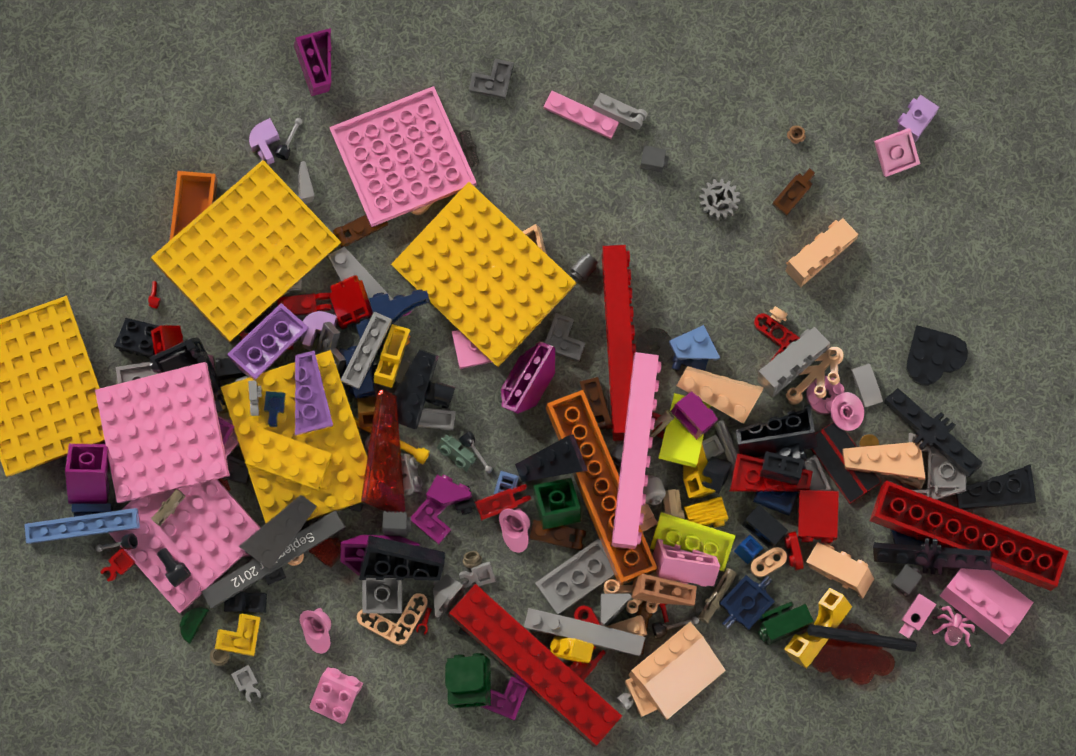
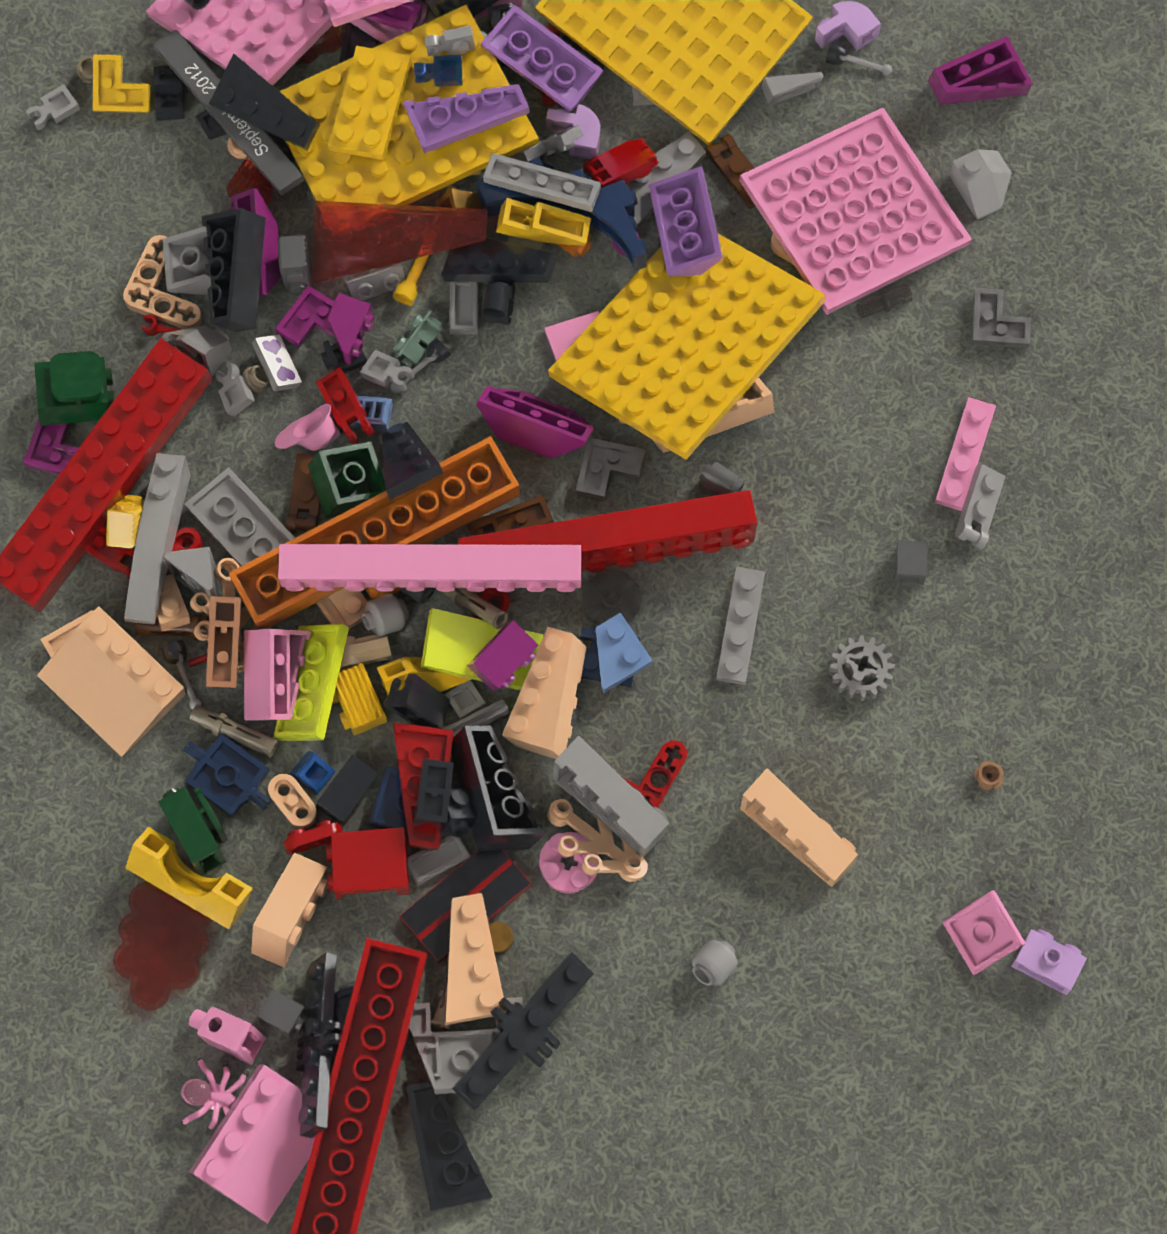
camera: 85 degrees right, 5 degrees down
(191, 623) = (133, 29): dark green tile -> none
(305, 303) = (611, 108): red hinge -> none
(315, 629) = (138, 186): bright pink piece -> none
(335, 695) = (47, 220): bright pink bracket -> none
(391, 73) = (981, 181): none -> light grey slope
(402, 263) = (686, 223): none -> medium lavender slope
(462, 545) = (276, 362): none -> tile
(477, 475) = (386, 369): none -> light grey plate
(624, 701) = (62, 614): light grey hinge -> none
(681, 270) = (740, 625): none -> light grey plate
(778, 314) = (688, 776): light nougat plate -> none
(794, 192) = (892, 780): reddish brown hinge -> none
(853, 411) = (539, 909): bright pink dish -> none
(861, 638) = (179, 948): black axle -> none
(867, 385) = (592, 924): light grey slope -> none
(899, 314) = (714, 962): none -> light grey head
(934, 354) = (657, 1025): black plate -> none

